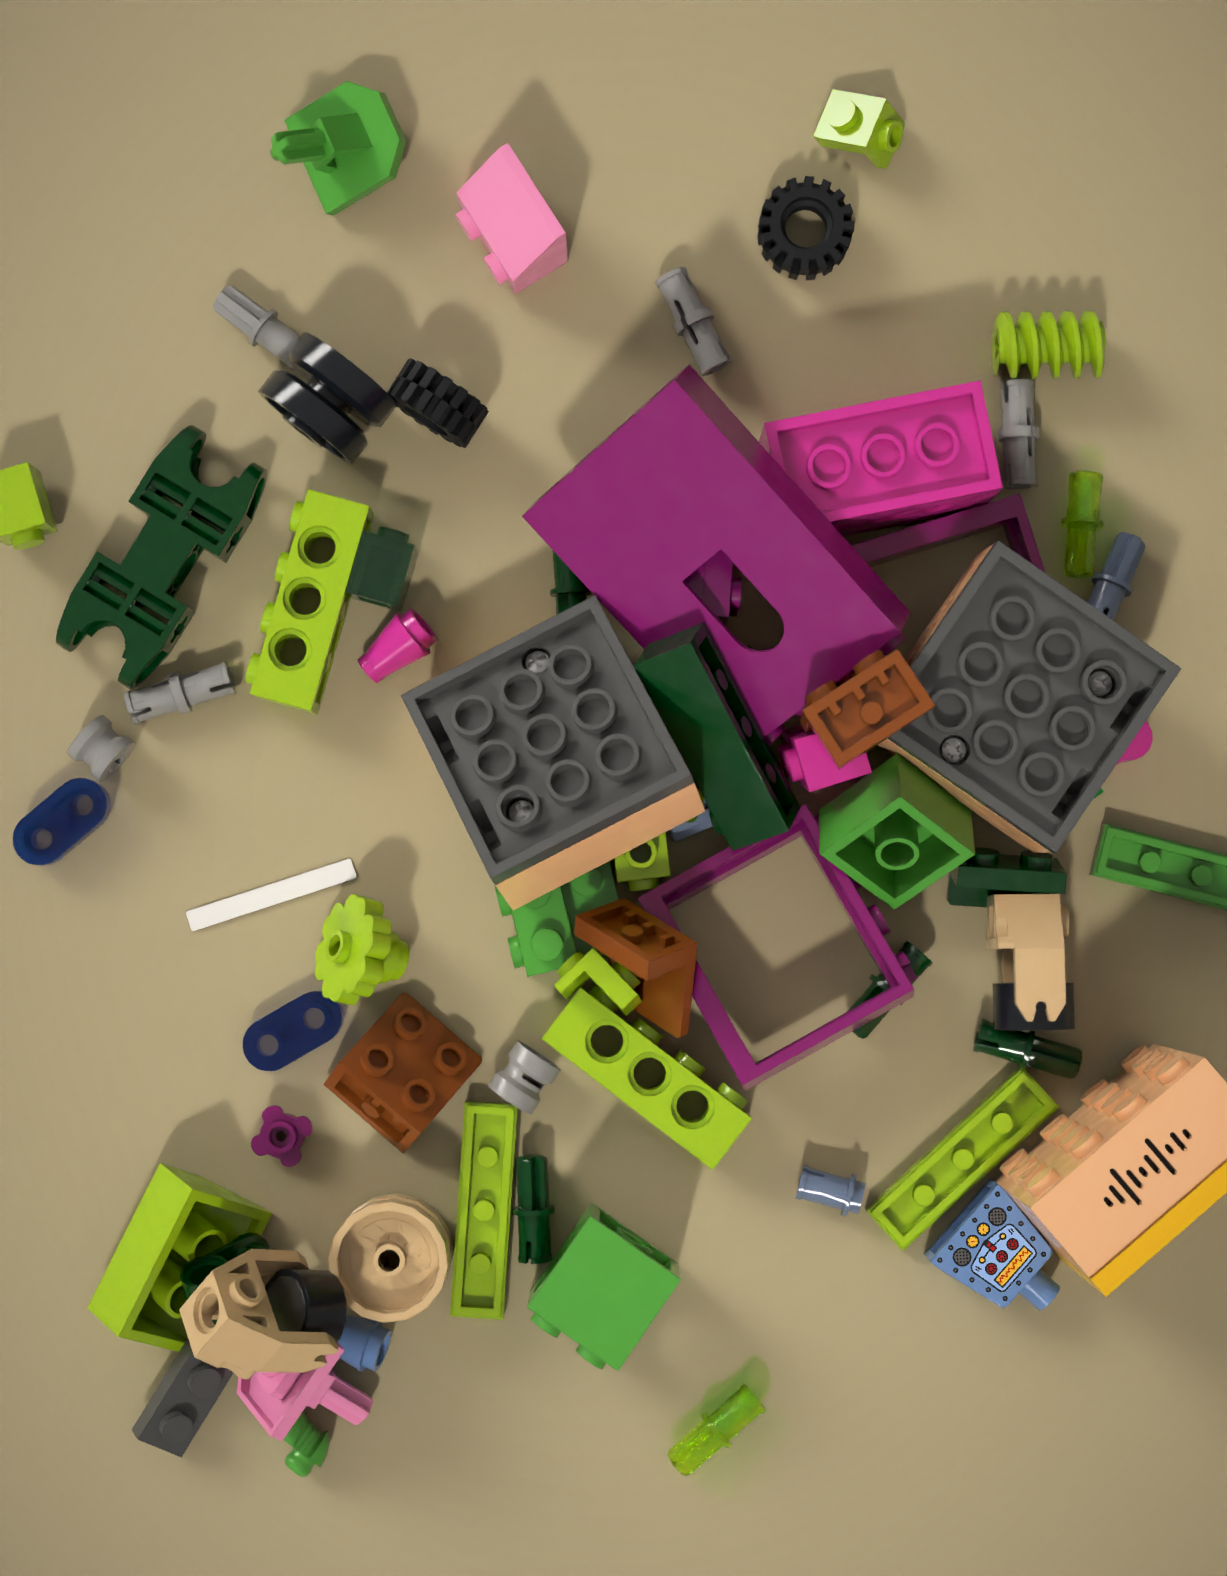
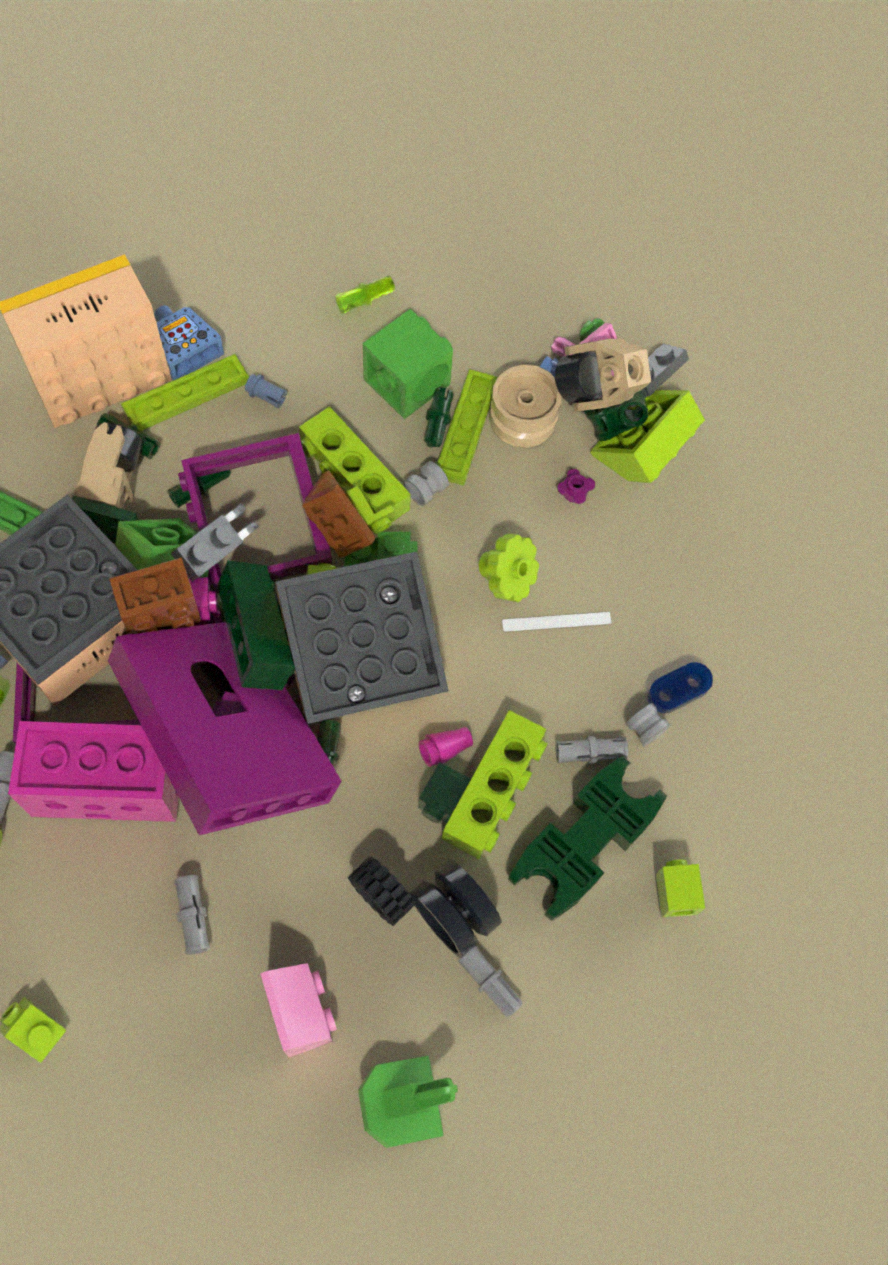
camera: 175 degrees left, 20 degrees down
(292, 1031) = (560, 542): clear blue plate -> none
(403, 1072) = (495, 502): dark orange bracket -> none
(813, 198) = (77, 946): black tyre -> none
(816, 853) = (213, 543): none -> hinge

